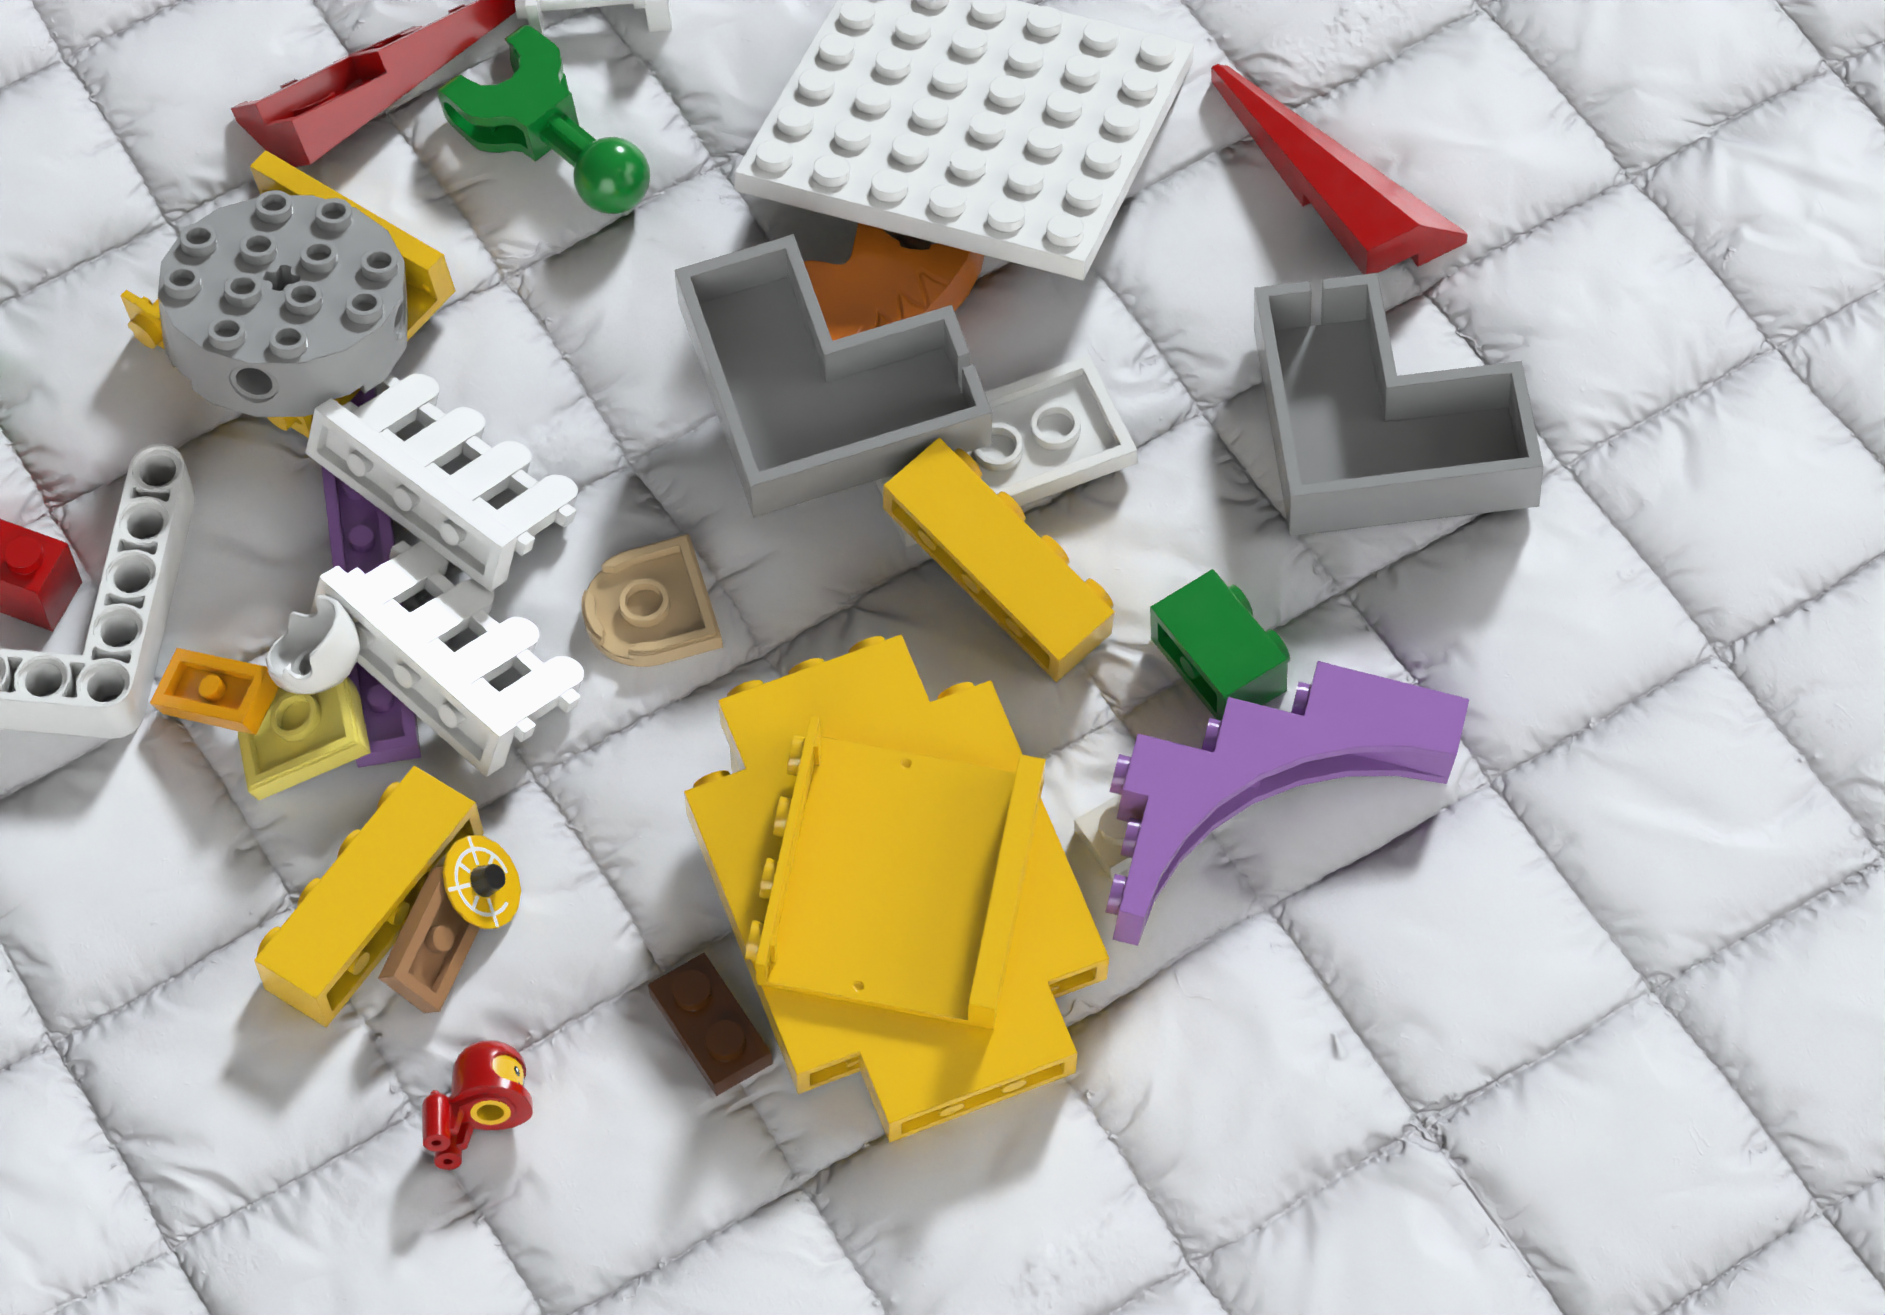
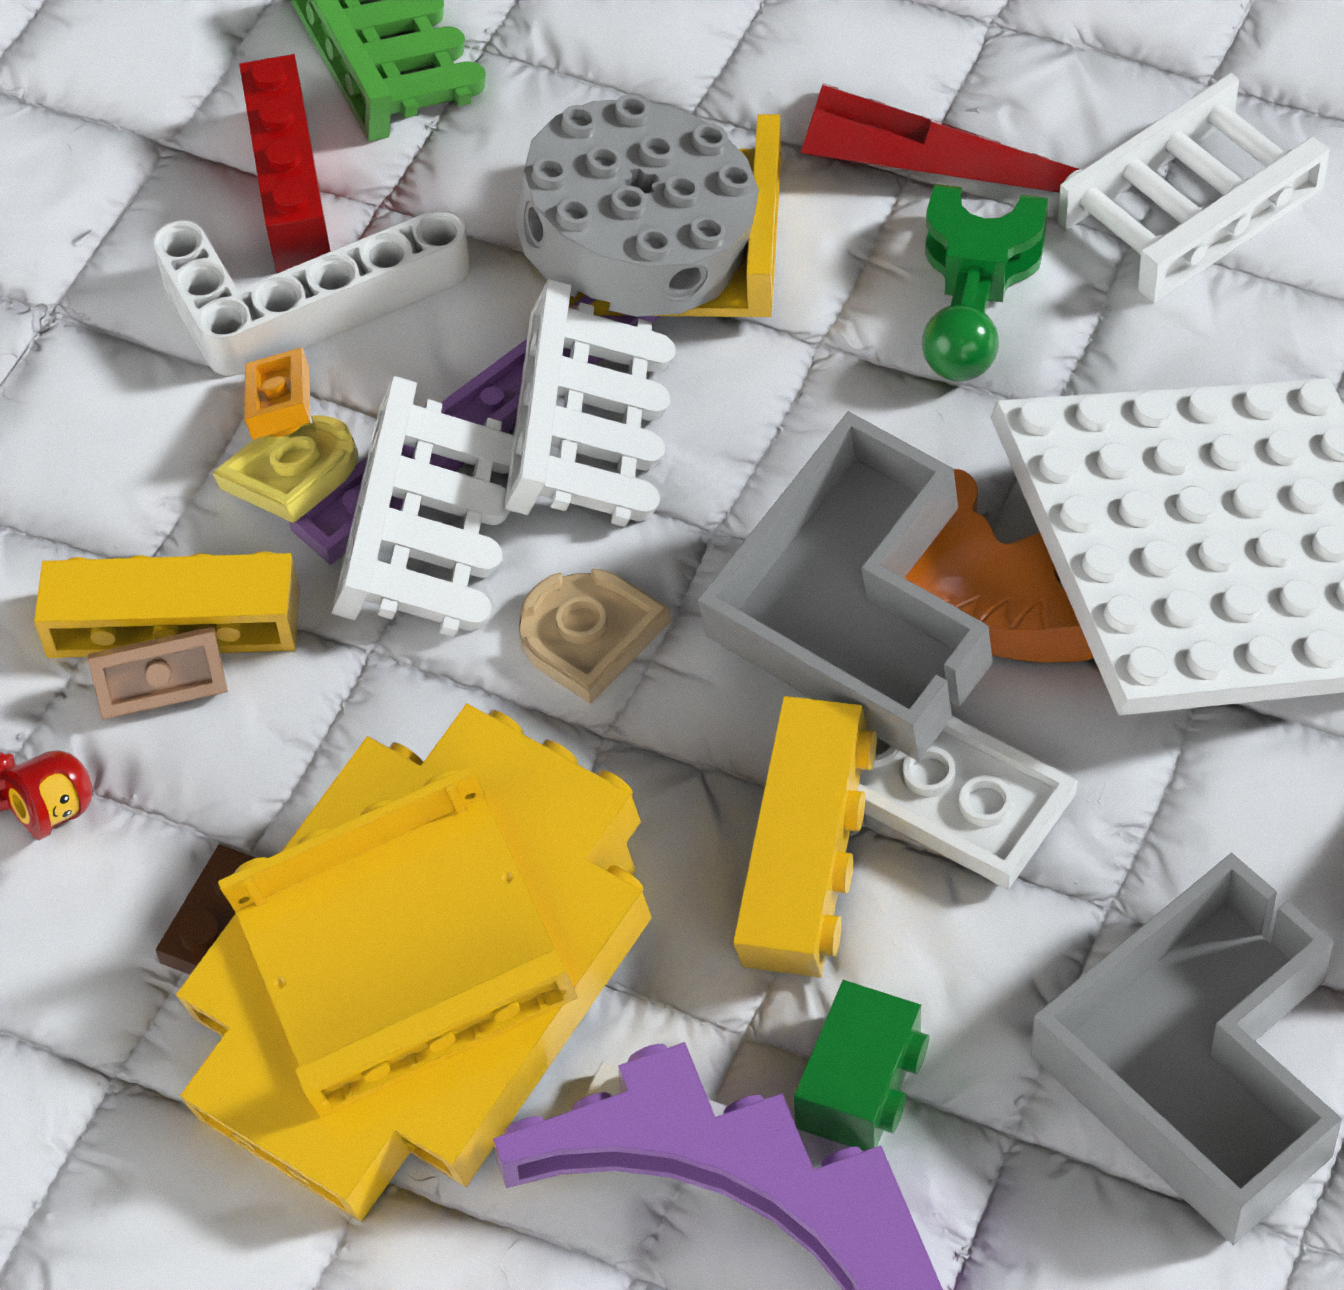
camera: 55 degrees right, 5 degrees down
(316, 649) = (334, 422): white hair -> none
(481, 882) = (230, 670): yellow piece -> none

